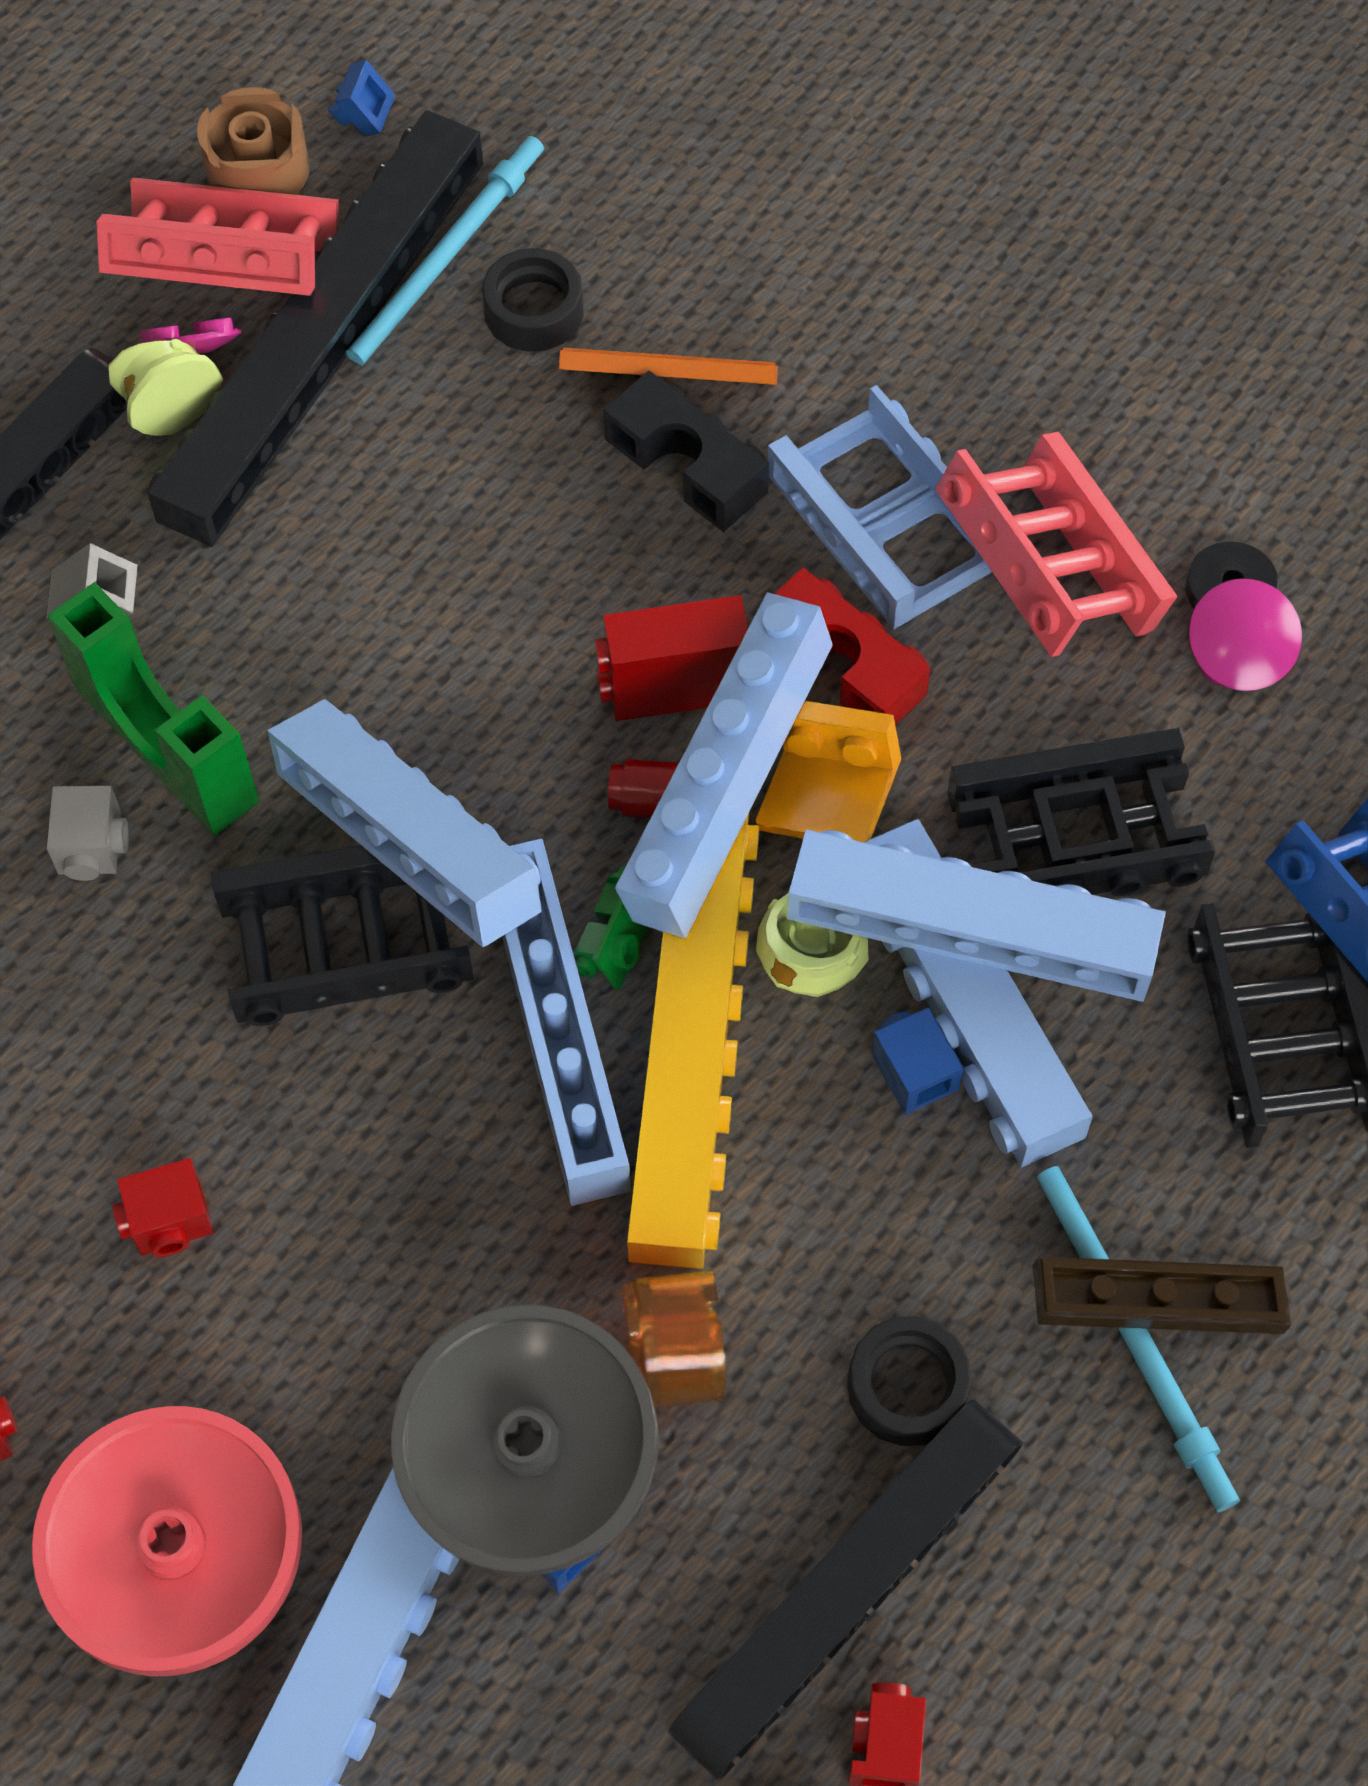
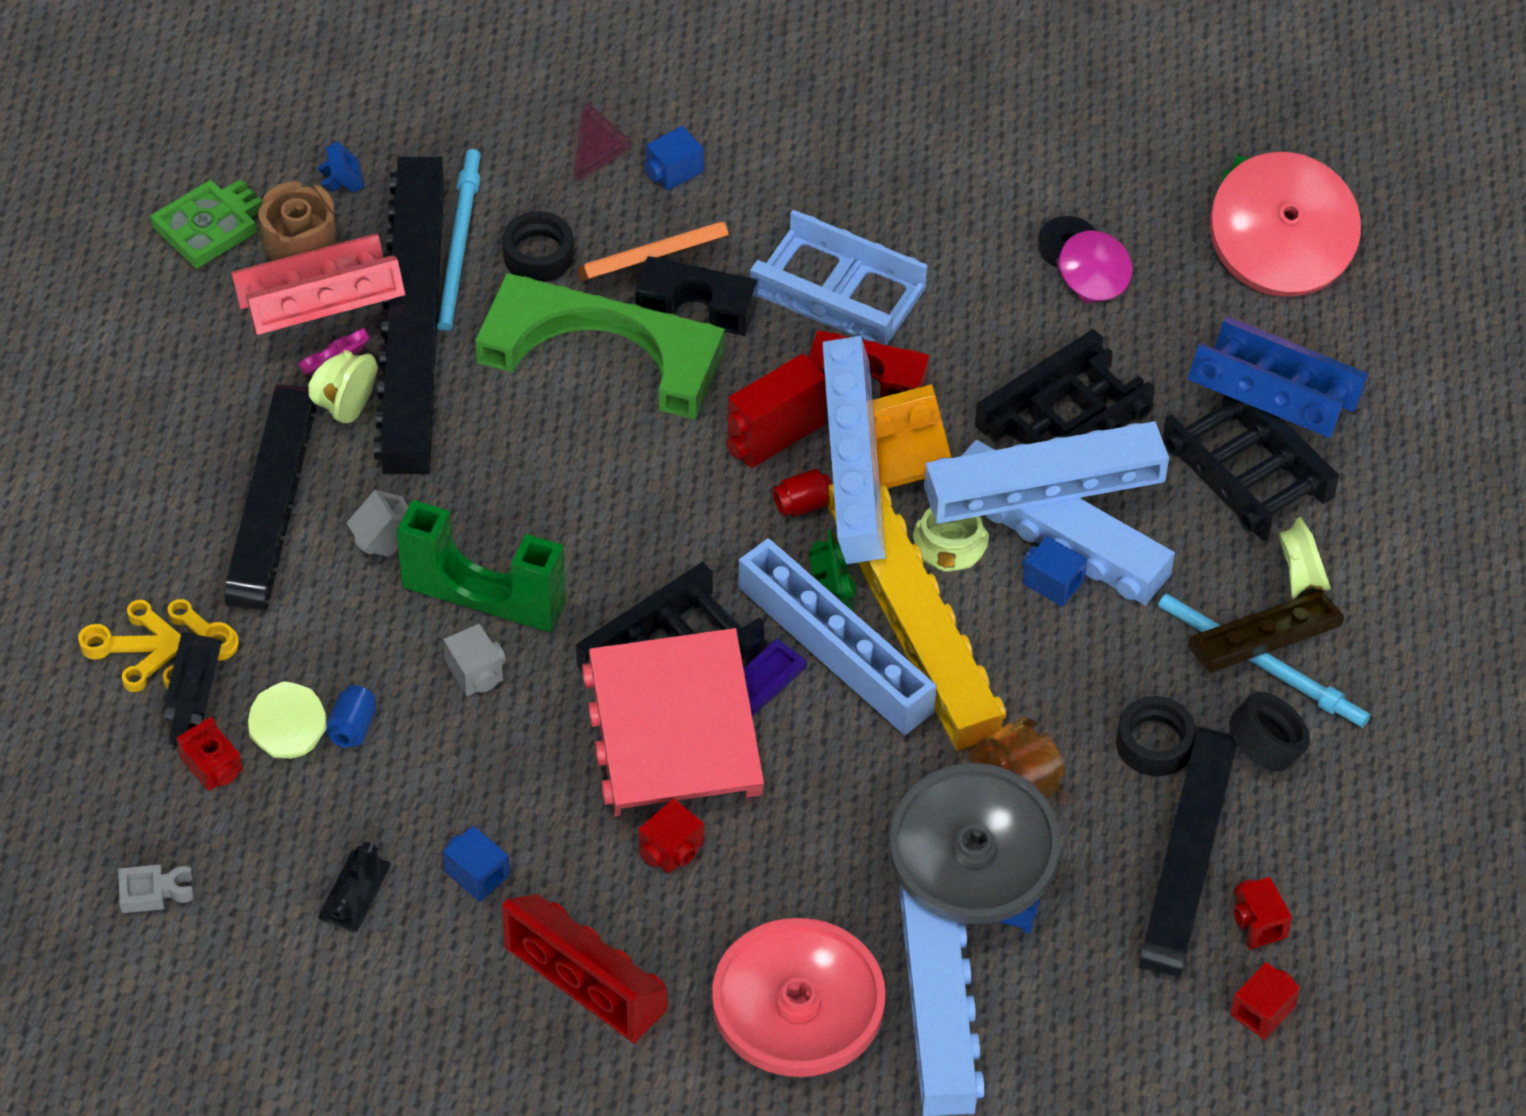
camera: 30 degrees left, 10 degrees down
(159, 100) = (208, 220): none -> bright green piece
(260, 1045) = (673, 720): none -> coral panel
(407, 822) = (680, 561): light blue brick -> none
(441, 1029) = (771, 673): none -> dark purple tile
(465, 384) = (534, 311): none -> bright green arch
(698, 193) = (598, 143): none -> clear pink tile
(775, 251) = (674, 158): none -> blue brick
(1086, 520) = (965, 240): coral fence -> none
(1103, 1452) = (1250, 735): none -> black tyre
(1273, 1213) = (1302, 559): none -> yellowish green hat

